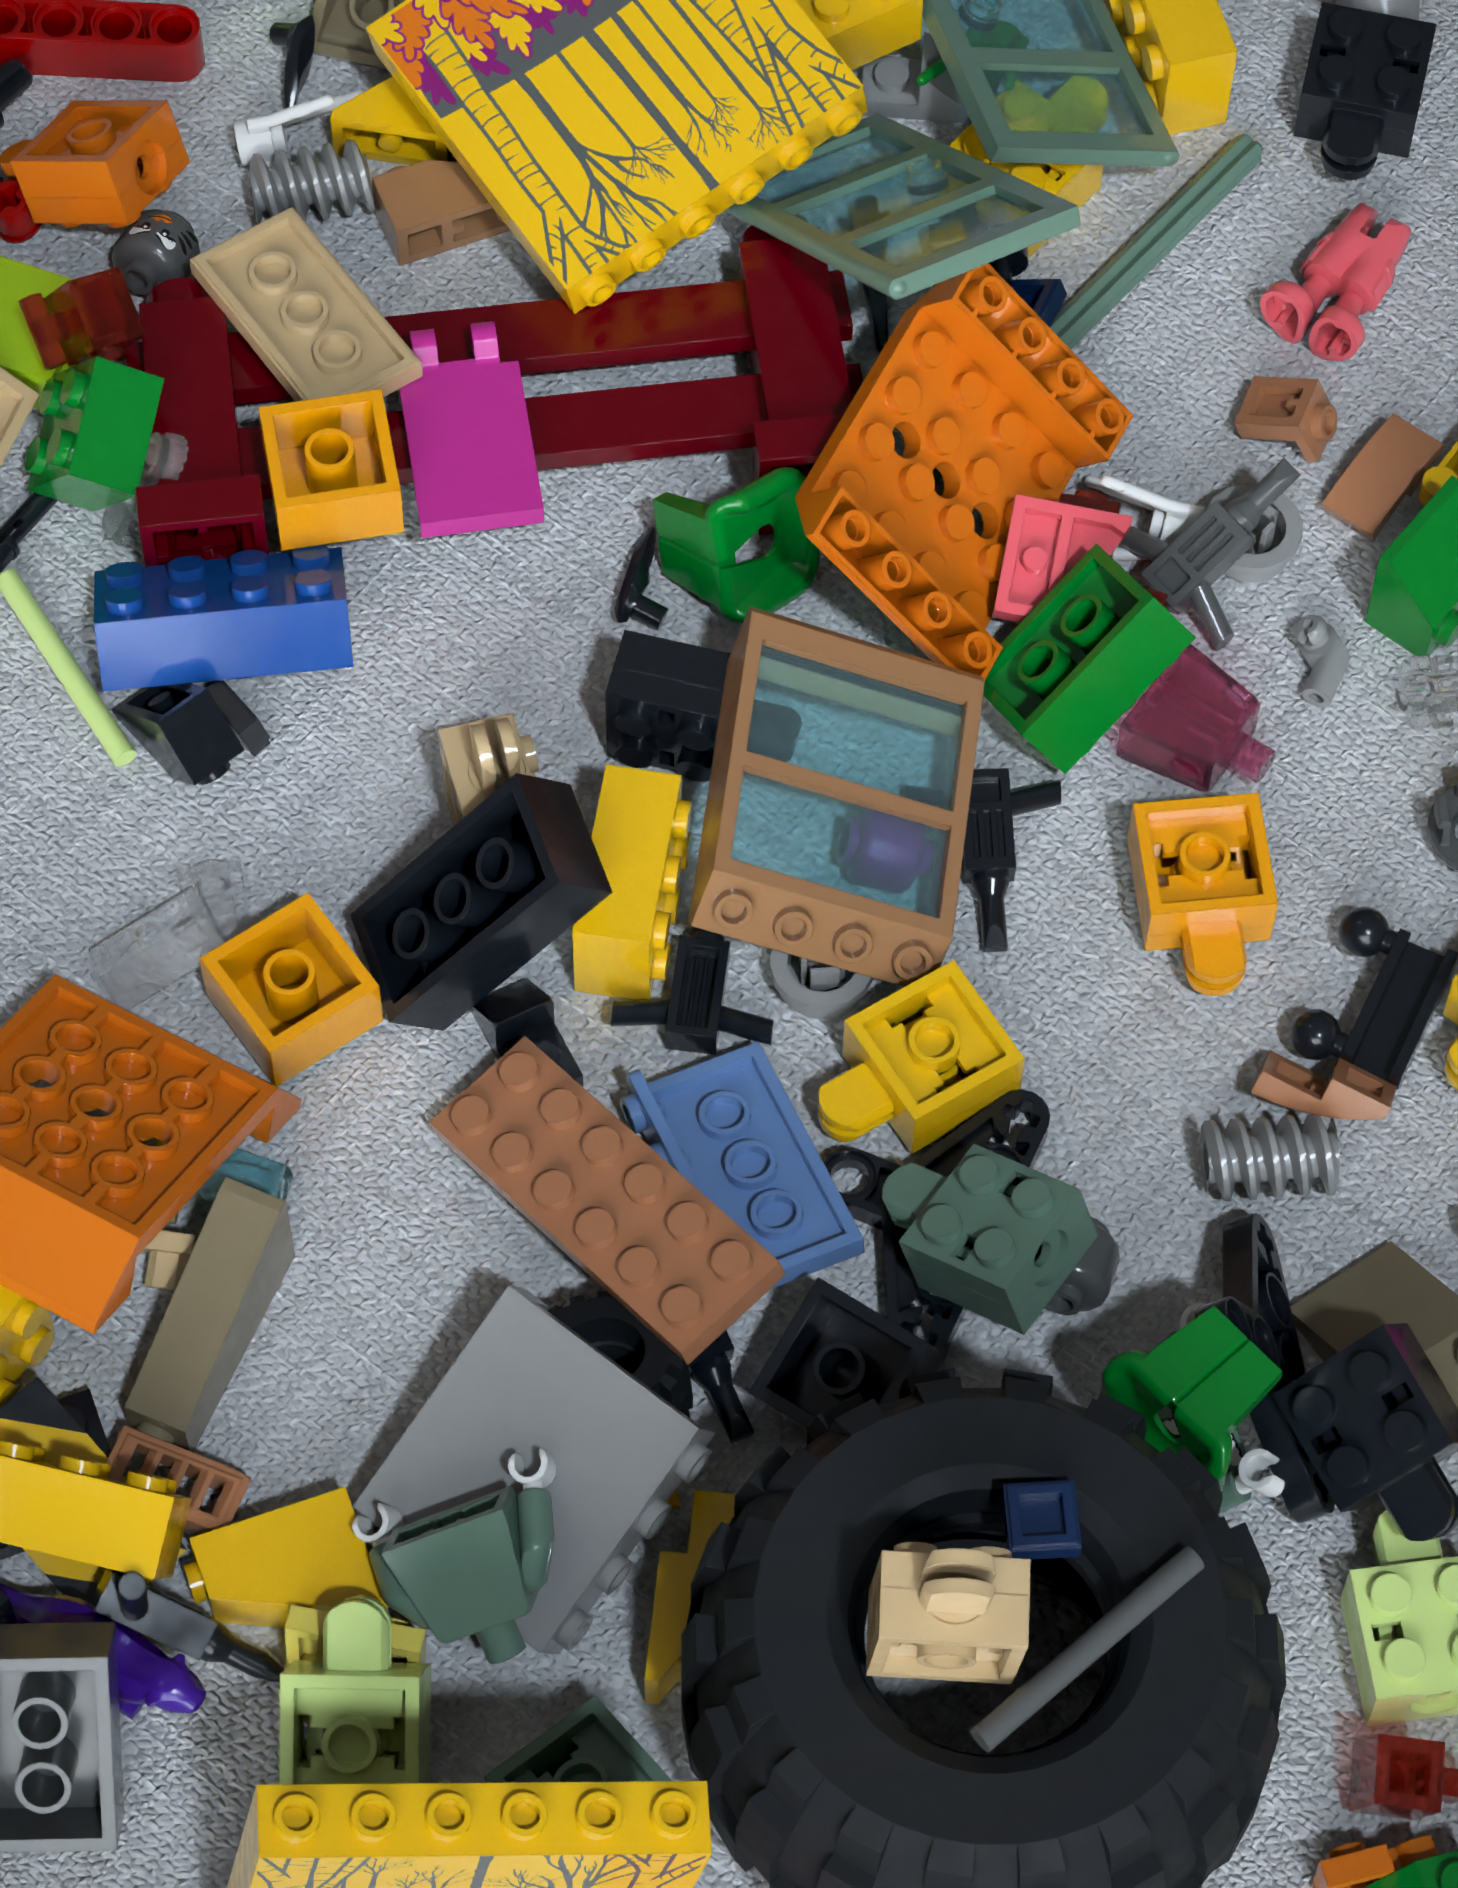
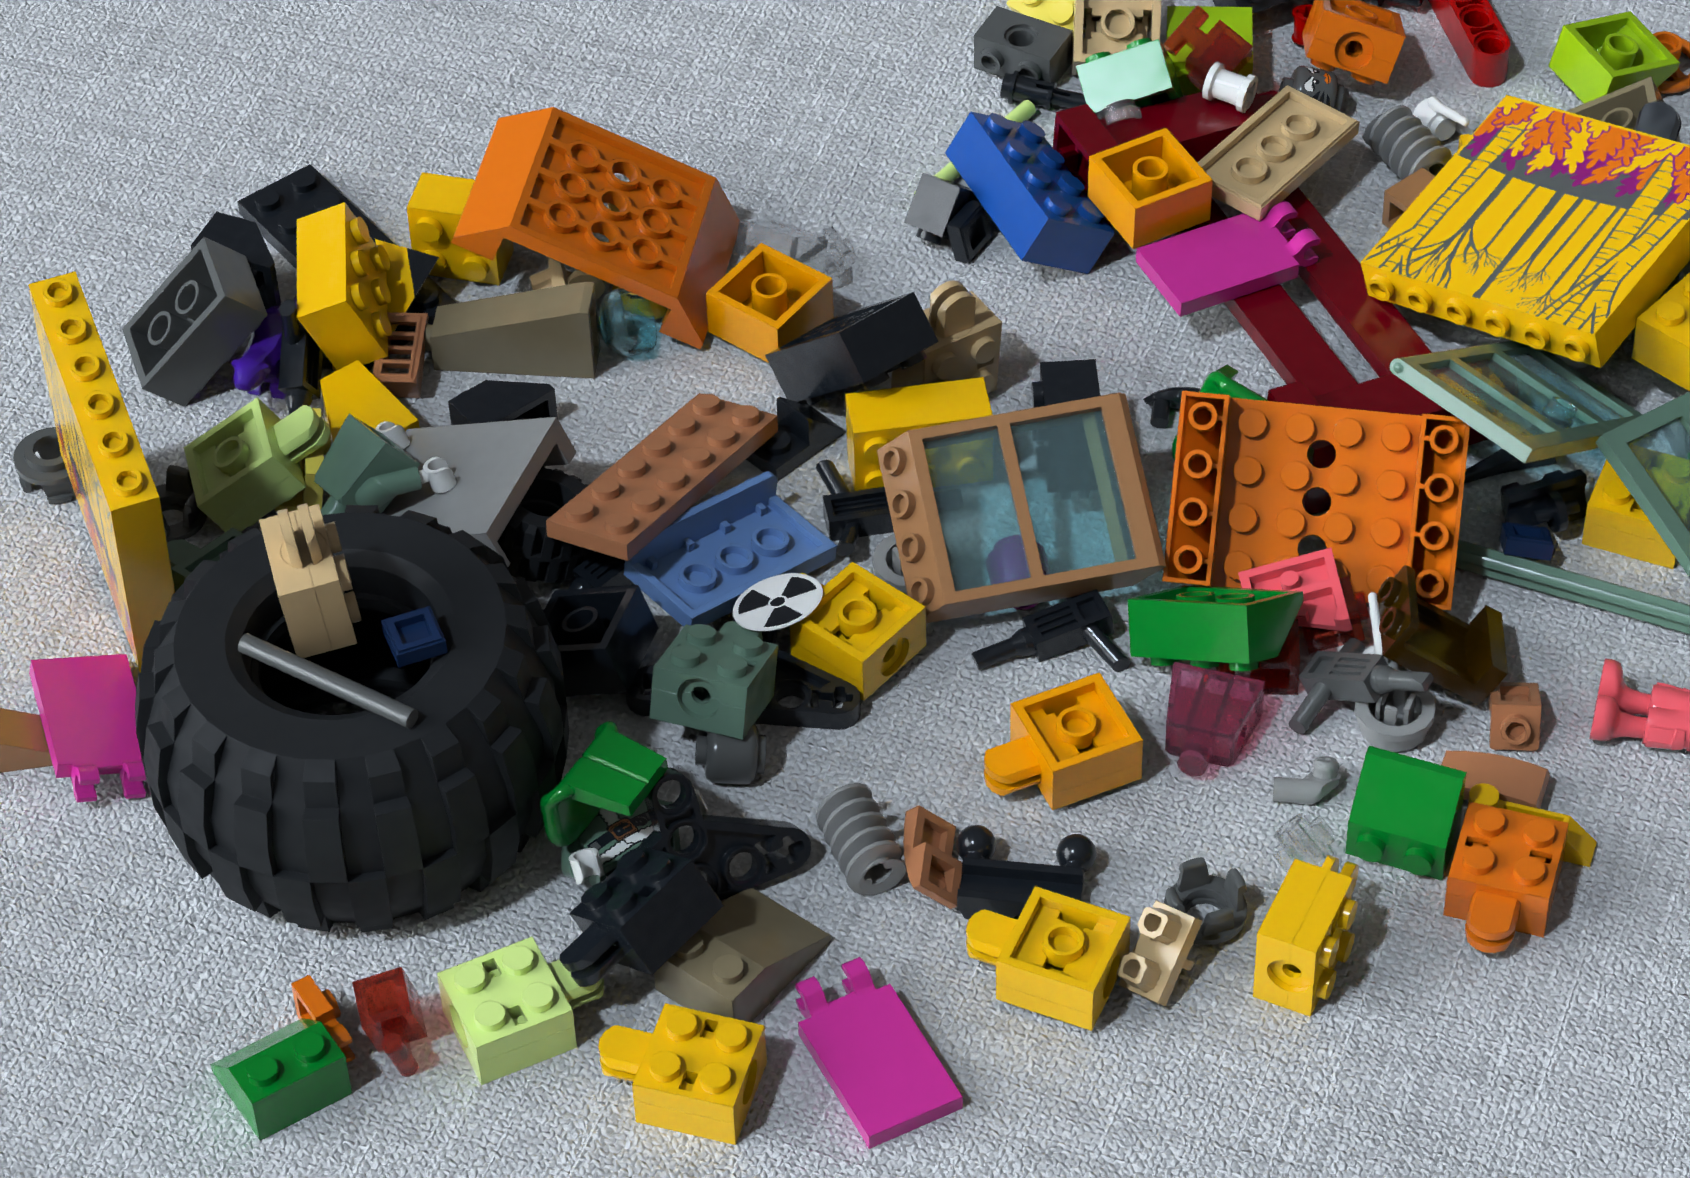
camera: 75 degrees right, 15 degrees down
(174, 319) = (1230, 87): none -> white bush
(347, 1391) = (503, 402): none -> black slope
(877, 1128) = (777, 602): none -> white sticker
(1188, 435) = (1427, 639): none -> dark brown panel

